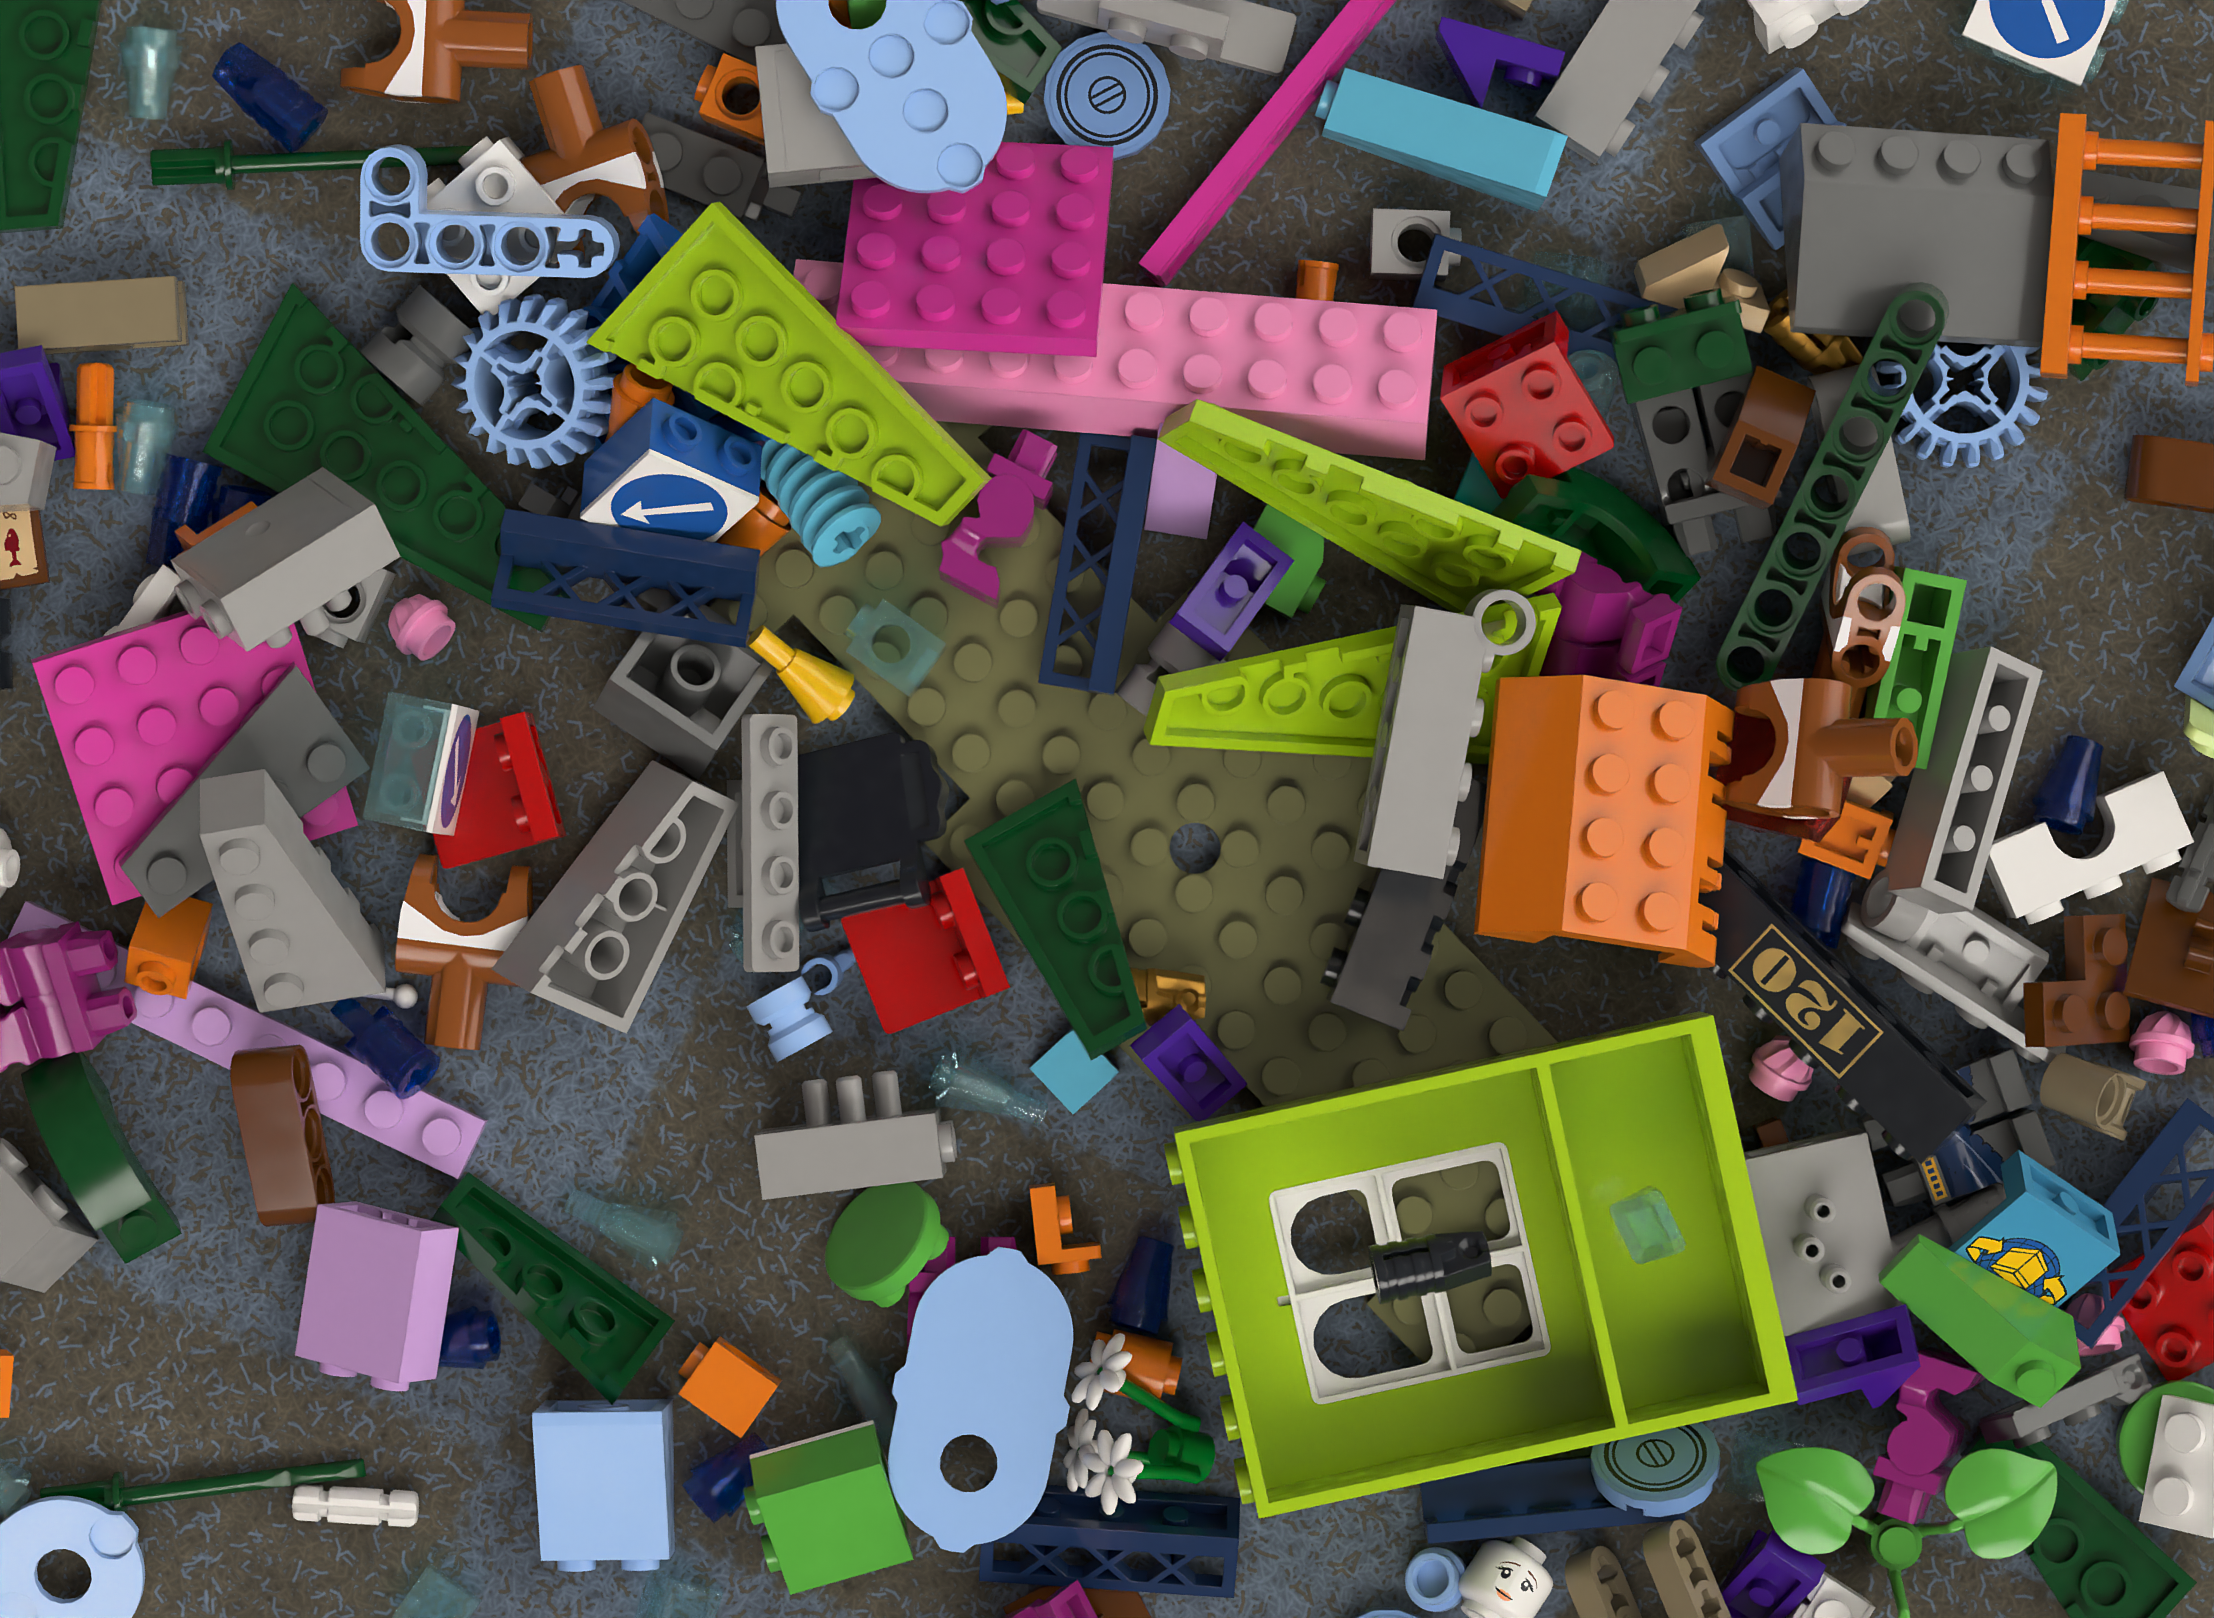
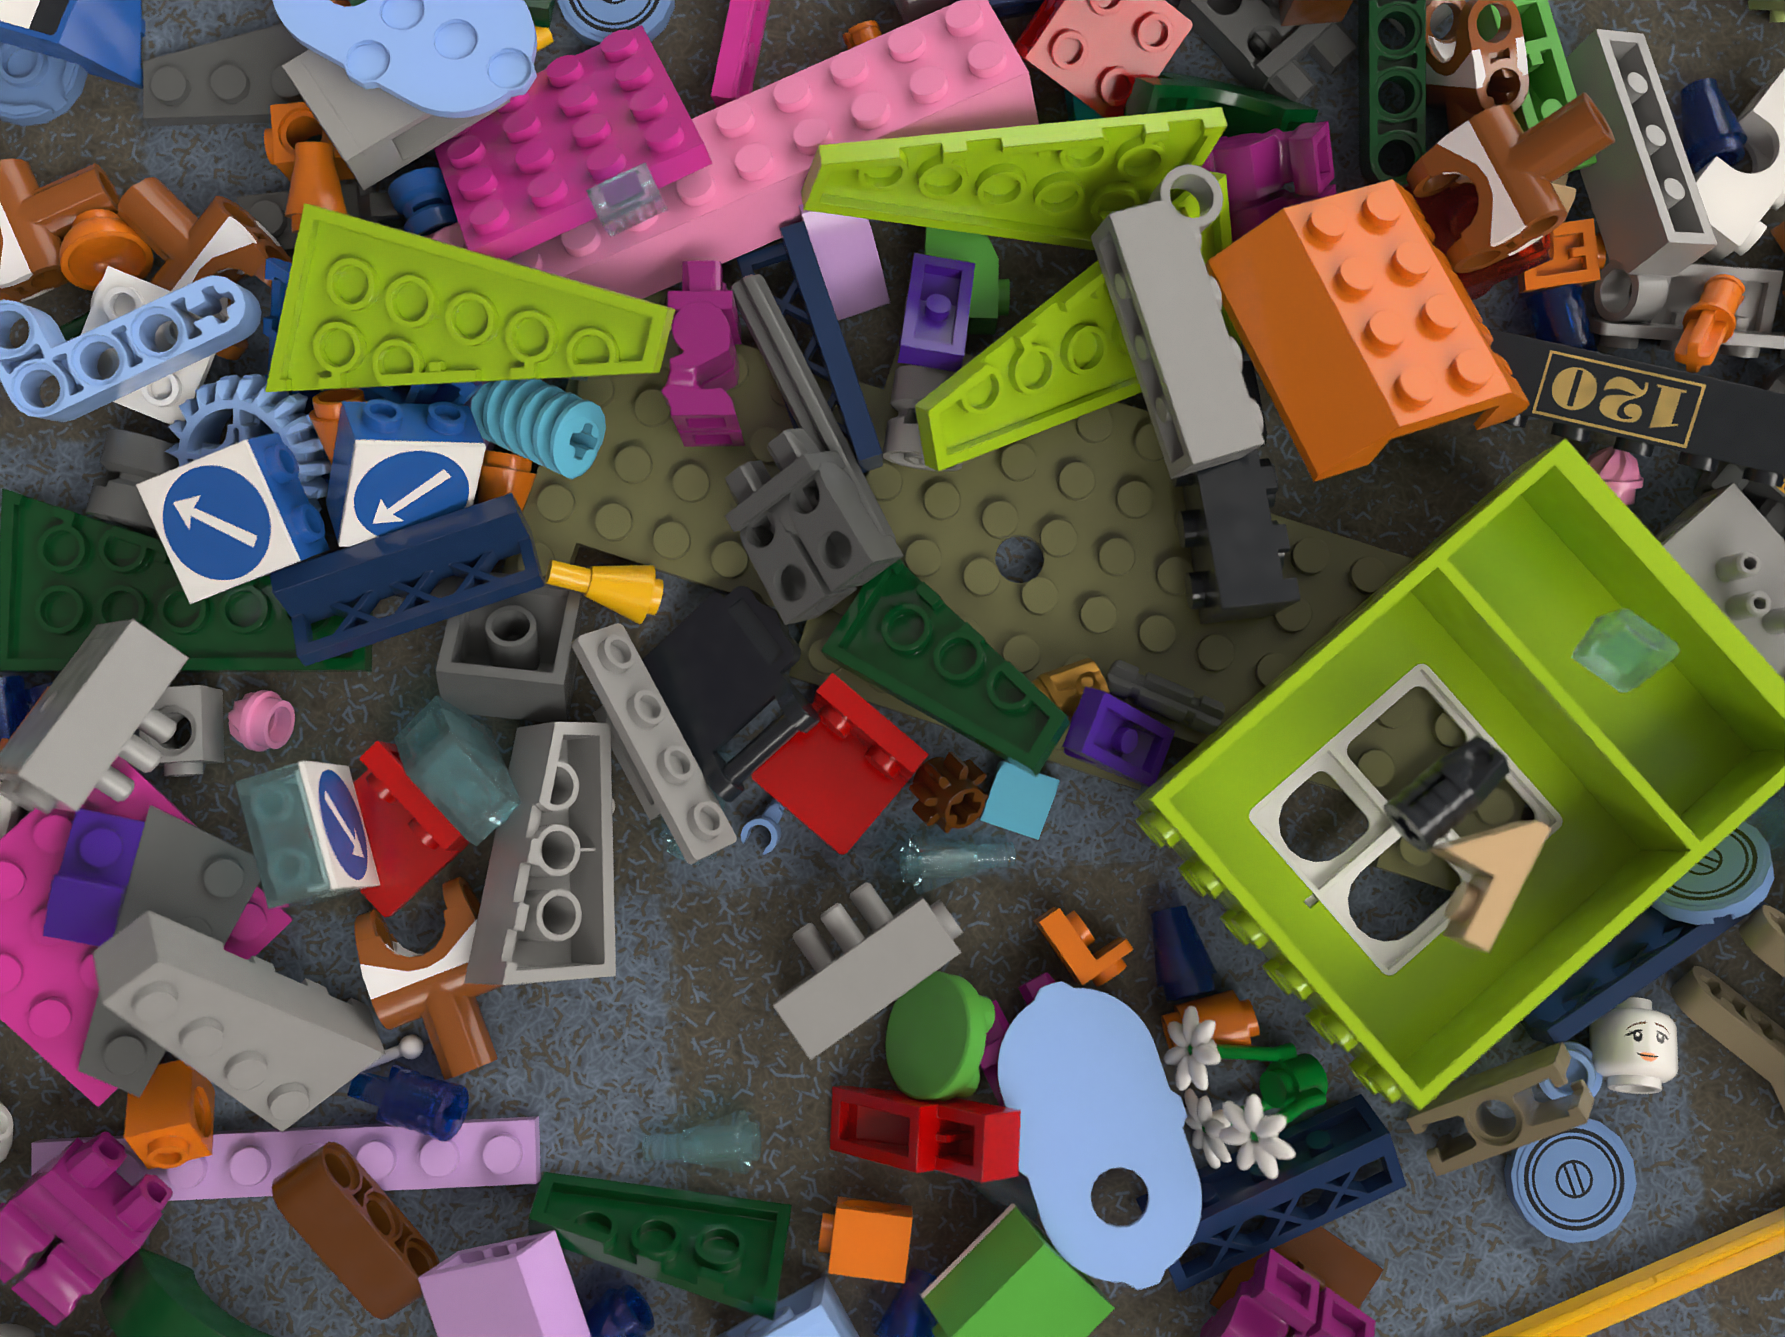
camera: 30 degrees left, 5 degrees down
(216, 705) = (92, 877): none -> dark purple slope
(496, 102) = (99, 241): none -> orange piece
(500, 442) = (234, 516): none -> piece
(582, 773) = (458, 768): none -> clear light blue slope
(724, 164) = (313, 181): none -> orange cone
(790, 1021) = (755, 889): light blue wheel -> none
(817, 215) = (423, 201): none -> blue wheel
(827, 1319) = (923, 1135): none -> red slope
(922, 655) = (697, 532): clear light blue brick -> none
(1000, 356) = (627, 200): none -> clear light blue slope
(1008, 725) = (806, 528): none -> dark grey hips
(1012, 1028) = (948, 792): none -> reddish brown gear
(1071, 620) = (798, 383): none -> dark grey axle
(1253, 1048) = (1164, 697): none -> dark grey axle
(1369, 1567) = (1510, 1084): none -> dark tan piece
(1437, 1343) = (1499, 867): none -> tan slope
(1937, 975) = (1709, 322): none -> orange axle

